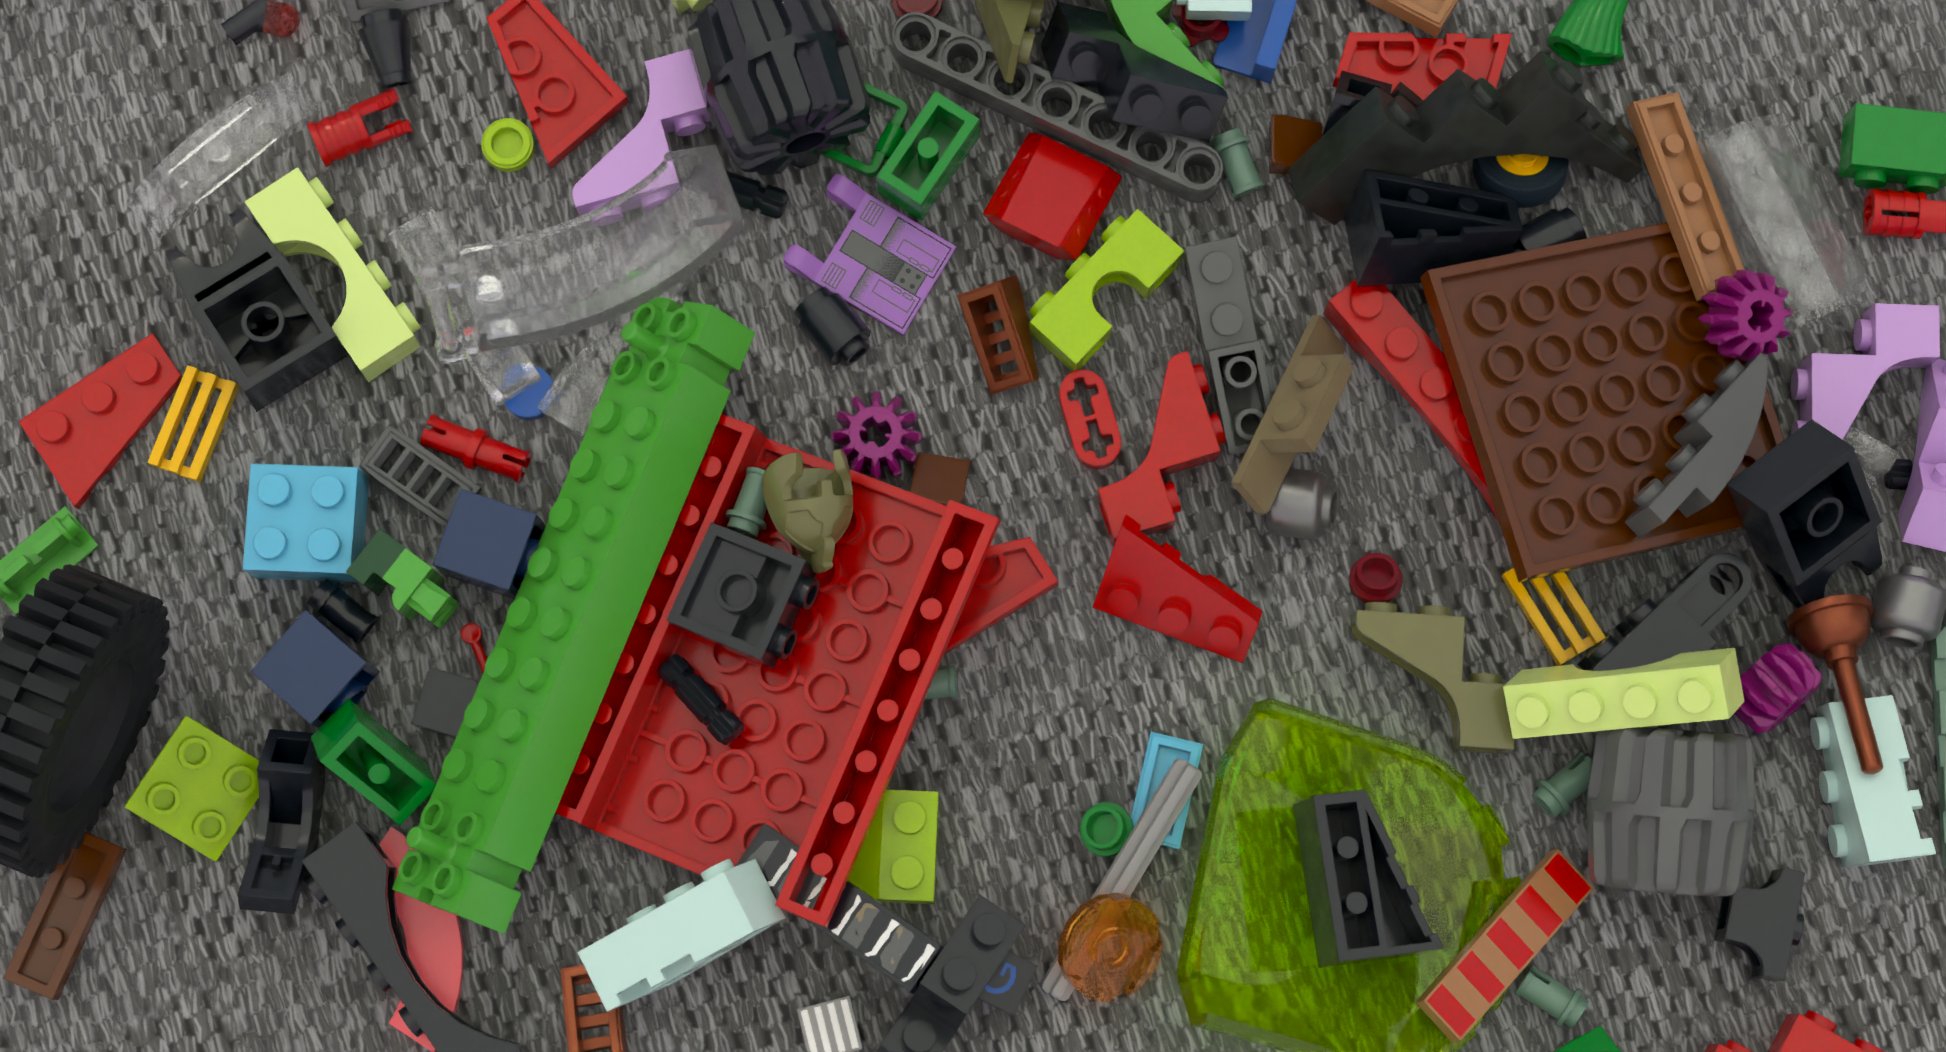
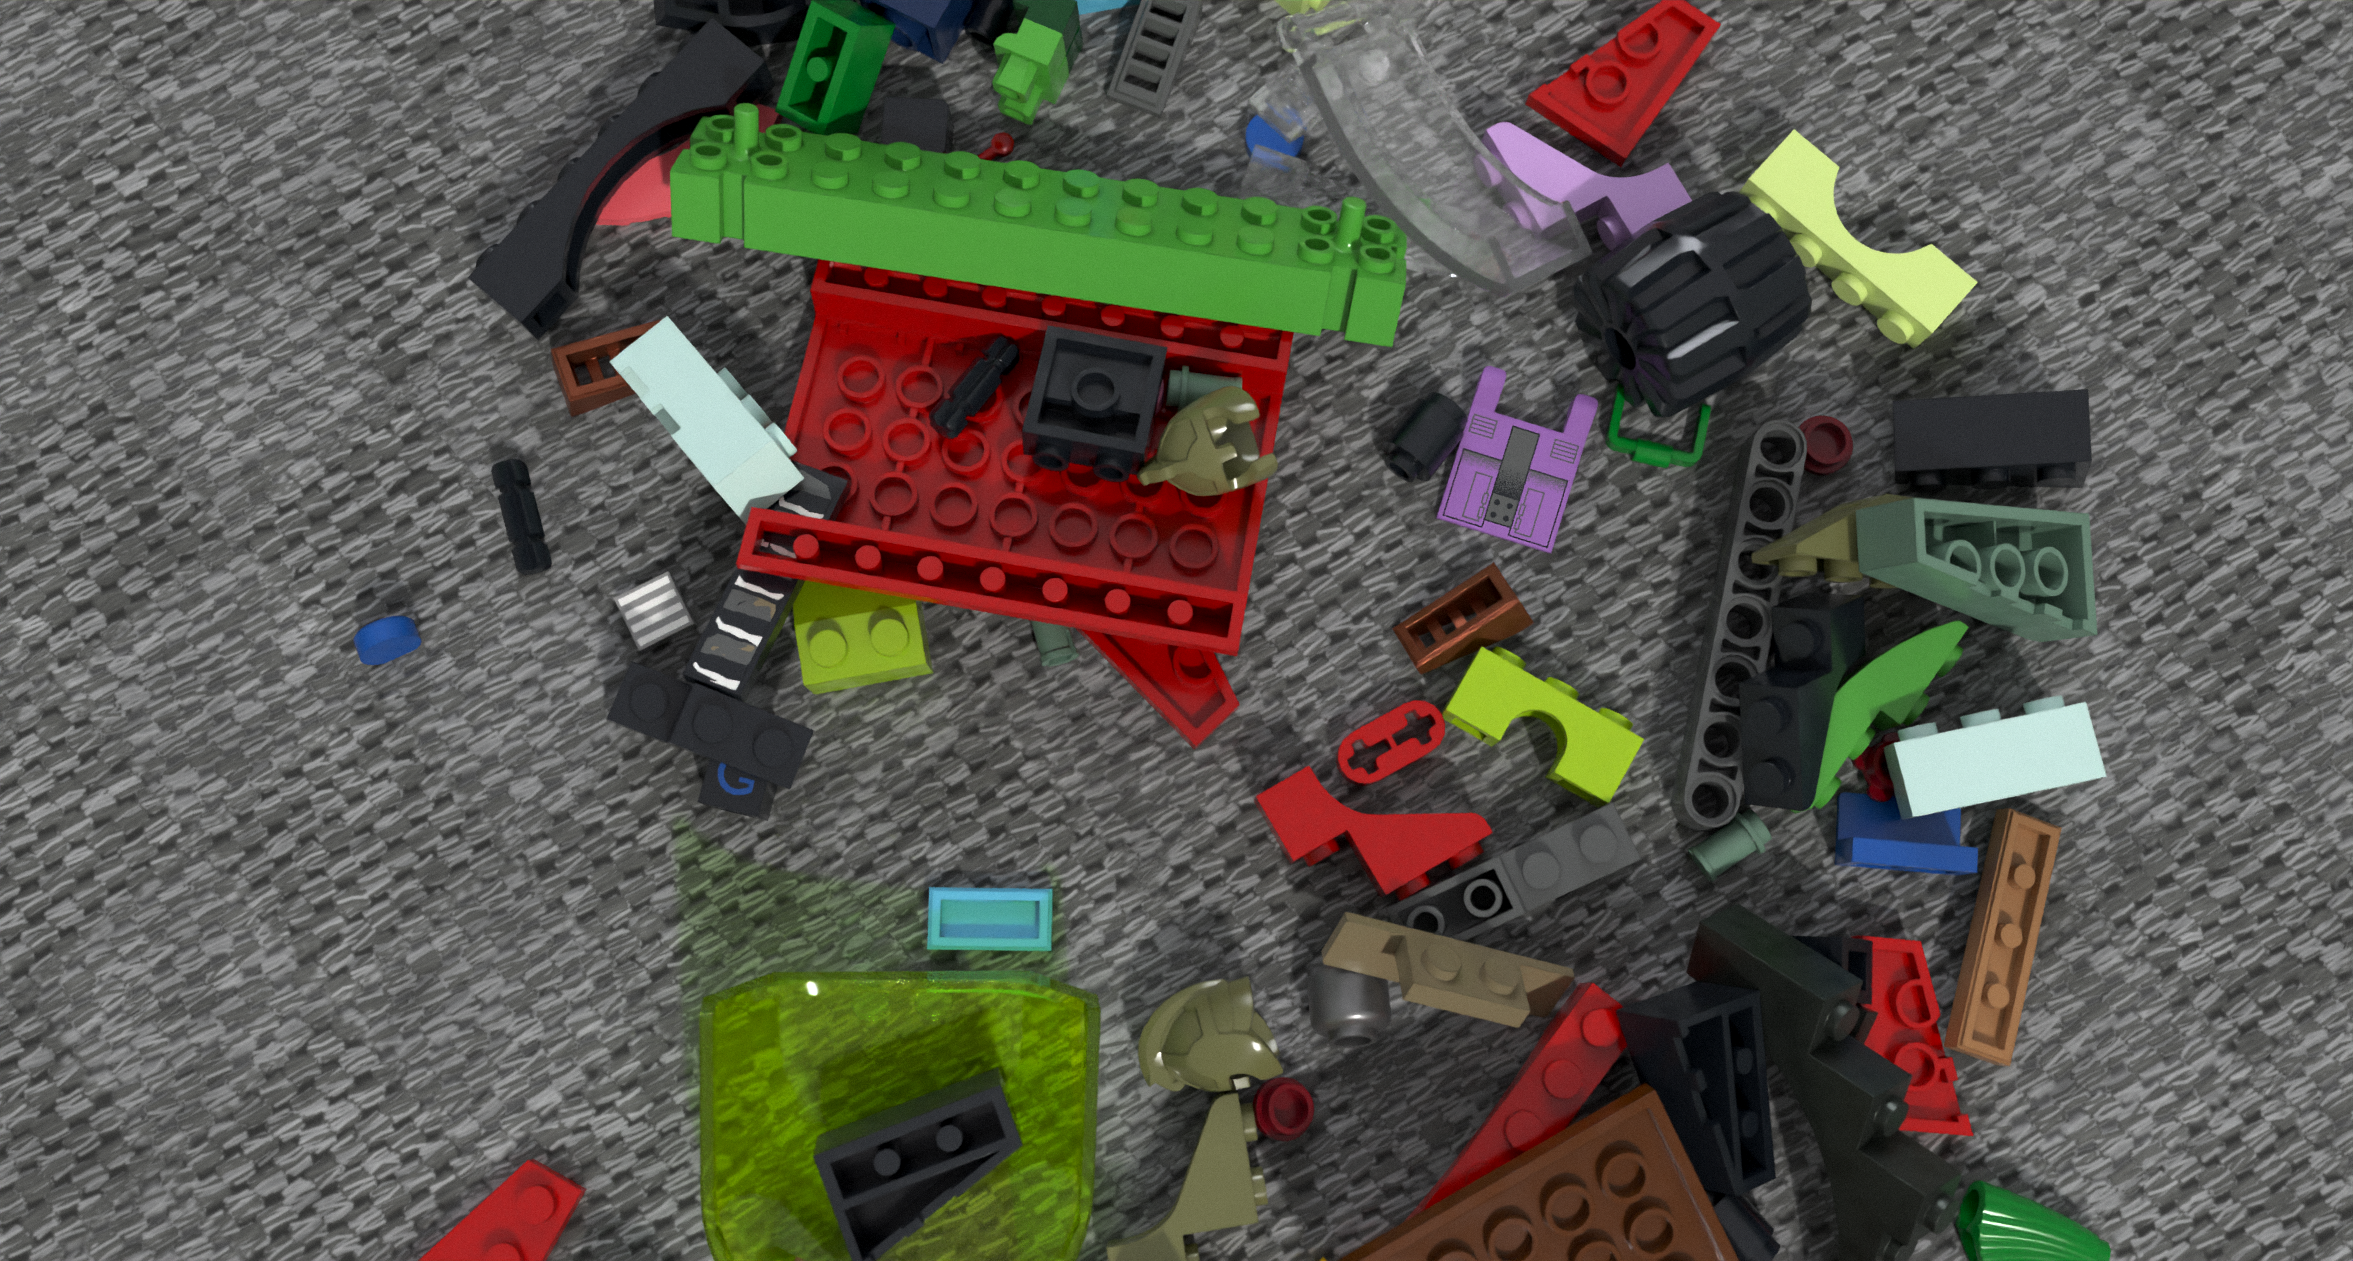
camera: 75 degrees right, 0 degrees up
(475, 448) = (1200, 99): red pin -> none
(488, 543) = (1095, 124): dark blue head -> none
(508, 144) = (1539, 53): lime tile -> none
(751, 194) = (1552, 315): black axle -> none
(883, 419) = (1335, 517): magenta gear -> none
(928, 155) = (1644, 493): green brick -> none
(940, 478) = (1280, 593): reddish brown slope -> none
(1052, 197) = (1634, 644): red slope -> none
(1105, 829) = (932, 863): green plate -> none
(1109, 946) = (798, 893): clear orange tile -> none
(1138, 850) = (879, 891): light grey axle -> none
(1166, 595) = (1207, 866): red wing -> none
(1290, 140) = (1774, 900): reddish brown slope -> none
(1307, 625) = (1208, 1039): none -> olive helmet
(1521, 176) = (1801, 1184): black wheel -> none

